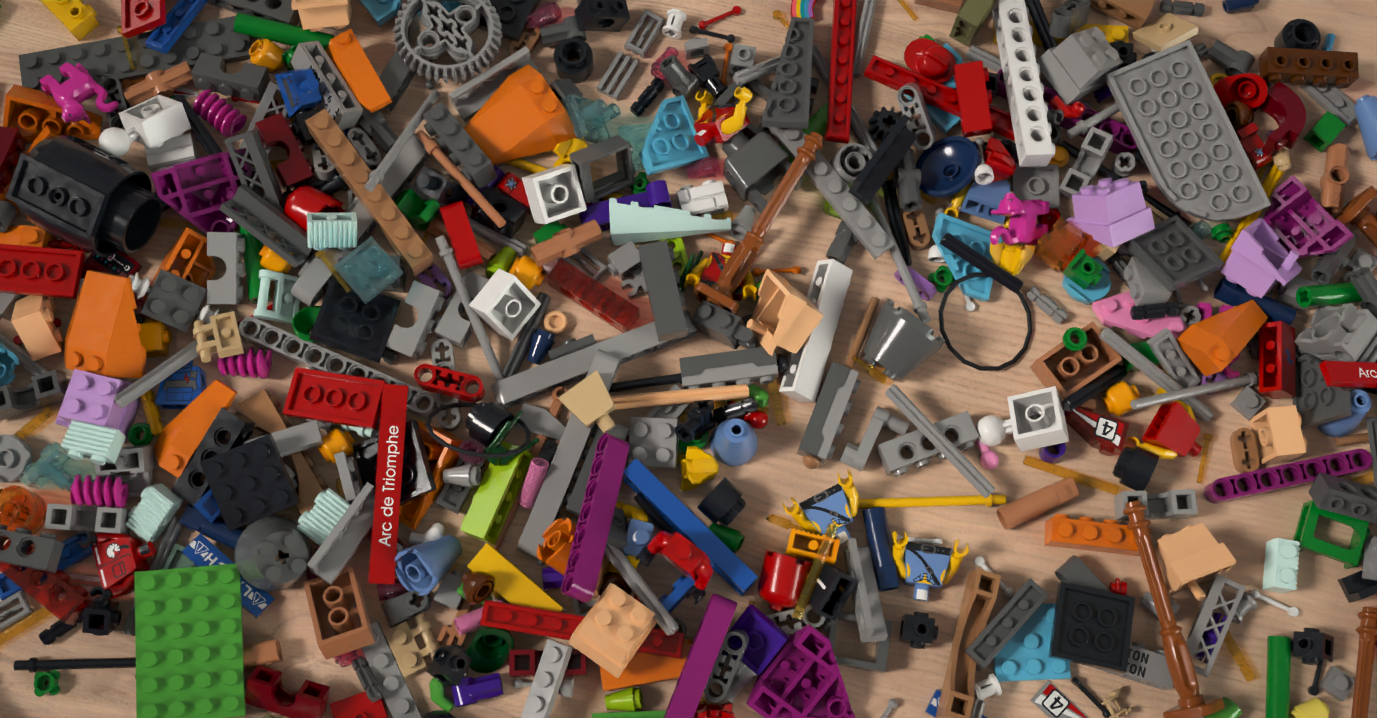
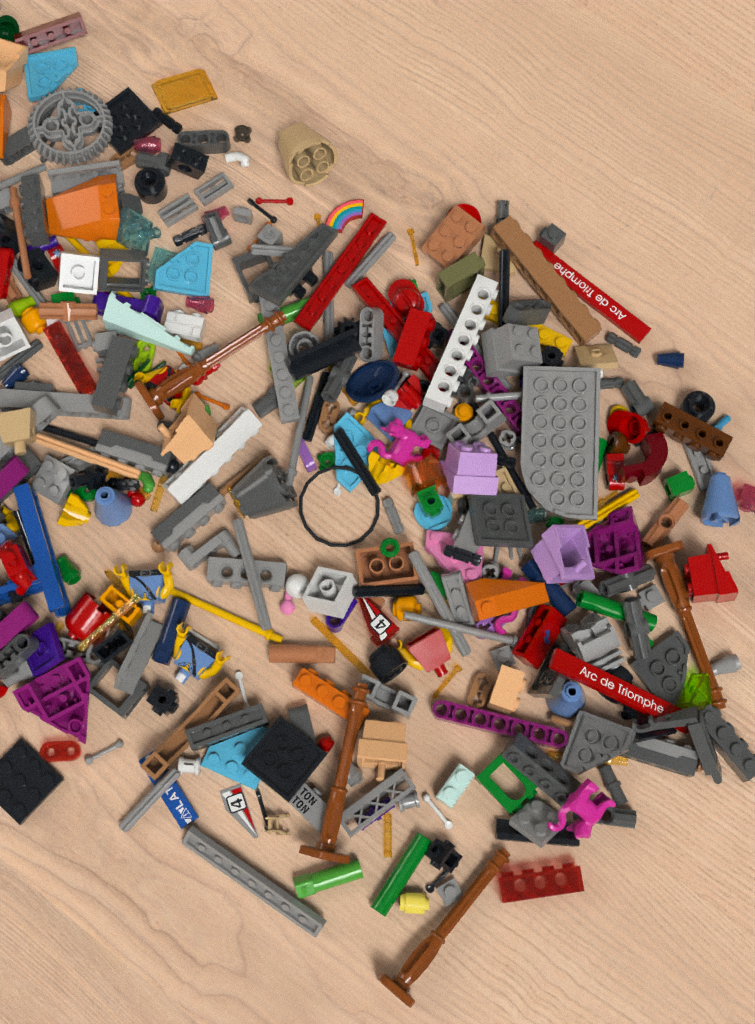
camera: 30 degrees right, 0 degrees up
(555, 322) = (36, 365): light nougat tile -> none
(674, 23) = (237, 190): white bush -> none
(708, 75) = (240, 238): black connector -> none
(720, 121) = (225, 273): torso -> none
(723, 326) = (145, 420): dark grey brick -> none
(723, 503) = (77, 544): black piece -> none
(754, 166) = (233, 316): dark grey piece -> none
(1069, 111) = (487, 382): red arm -> none
(1281, 159) = (629, 491): tan arm -> none

